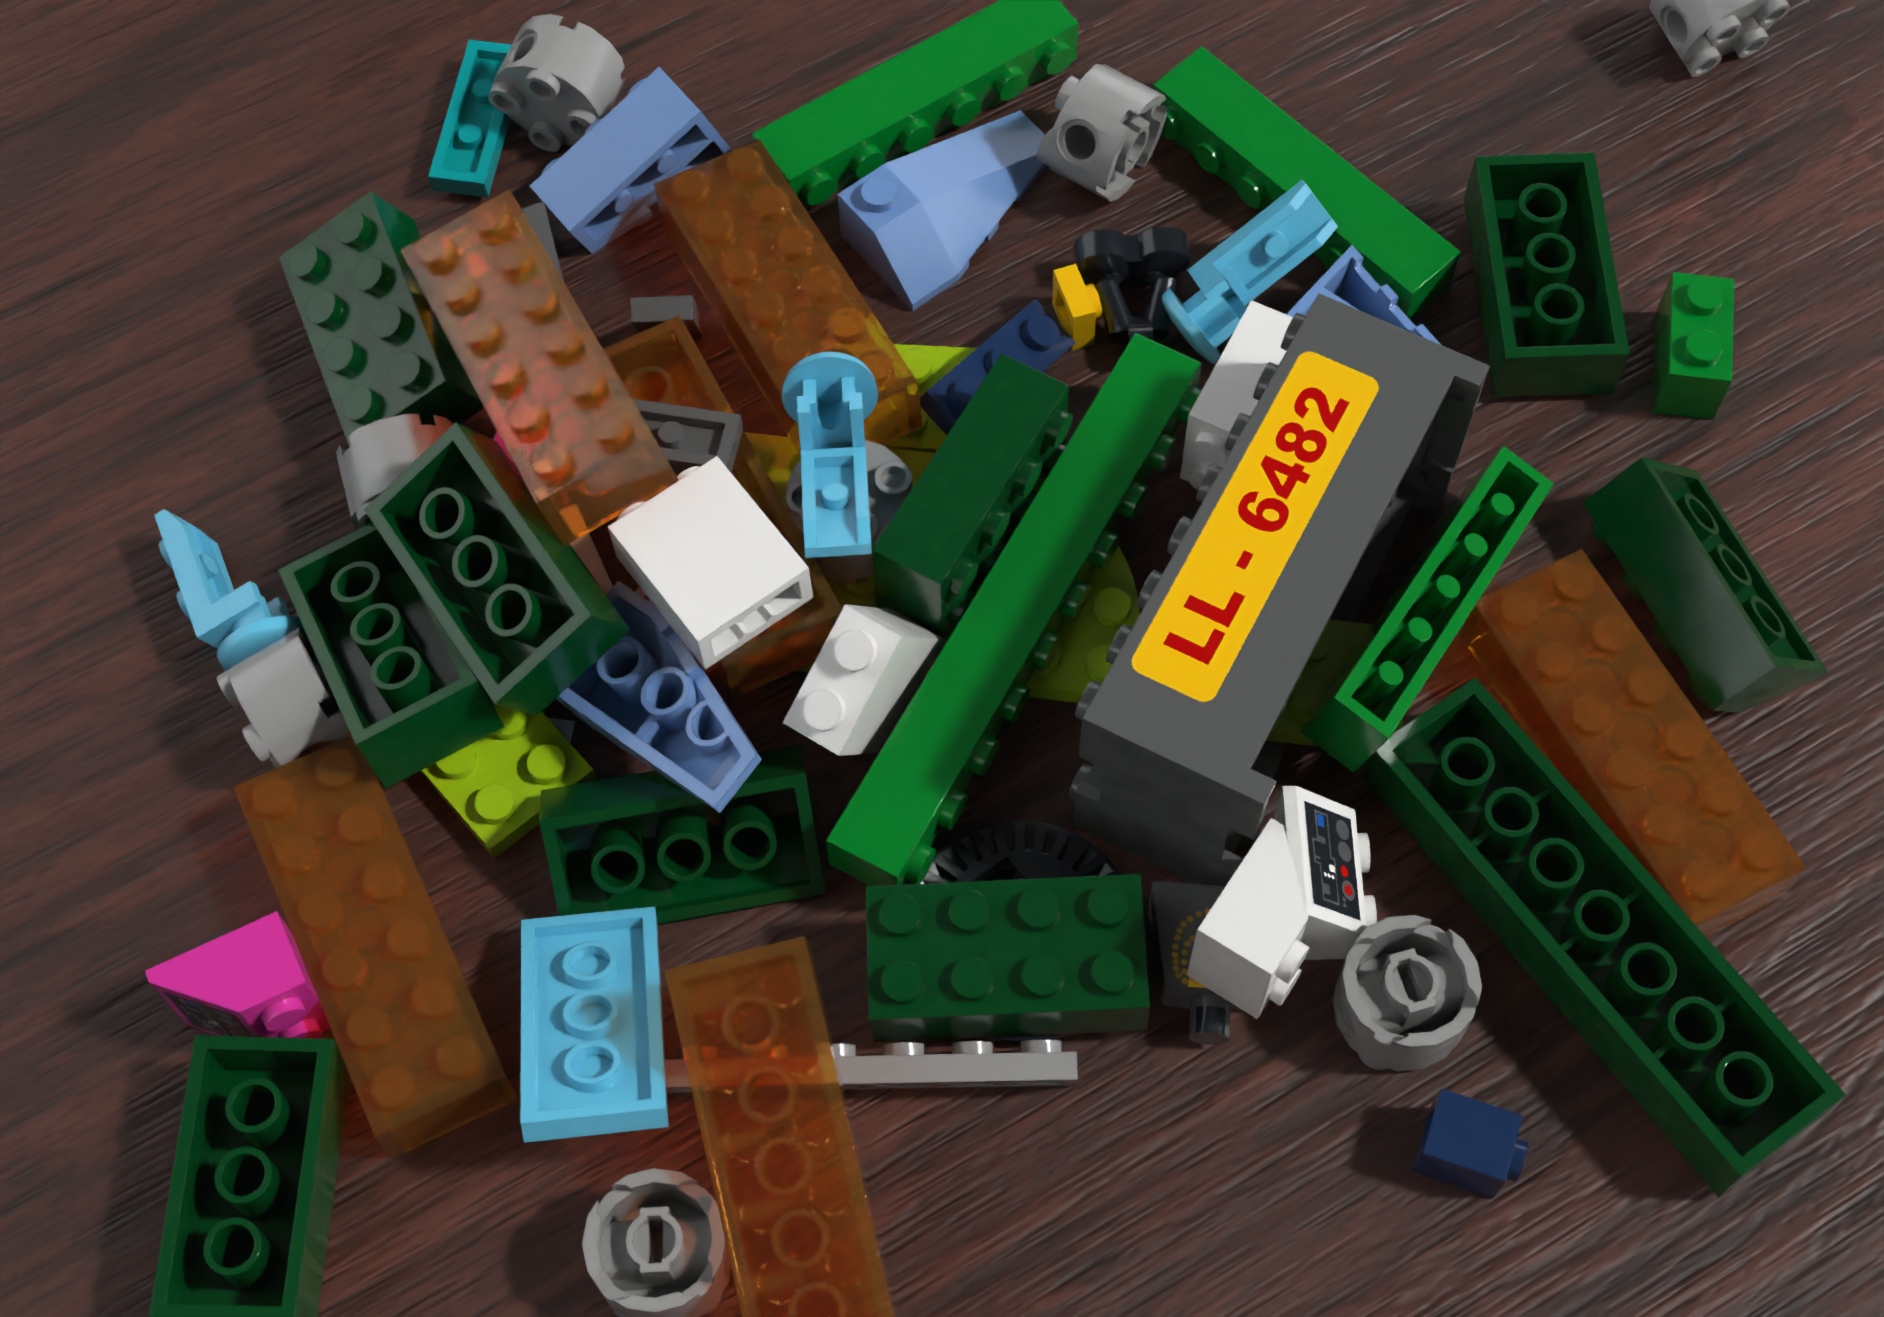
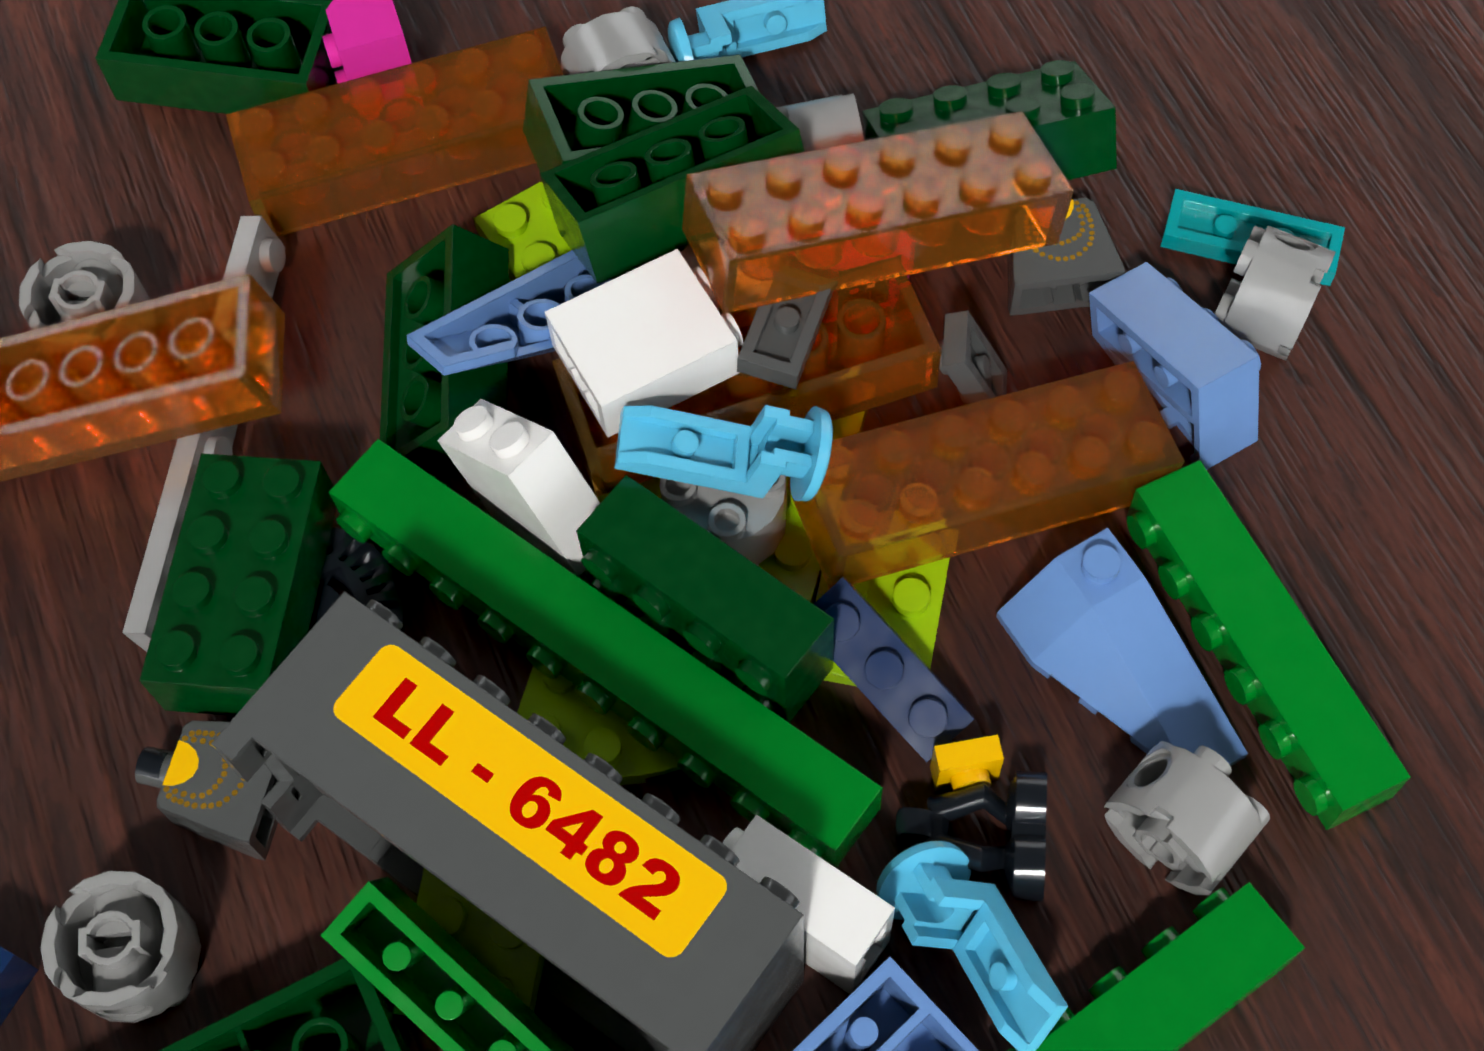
camera: 100 degrees right, 0 degrees up
(591, 1025) = (309, 263): medium azure plate -> none
(1254, 930) = (171, 779): white slope -> none
(1329, 869) = (256, 884): slope -> none

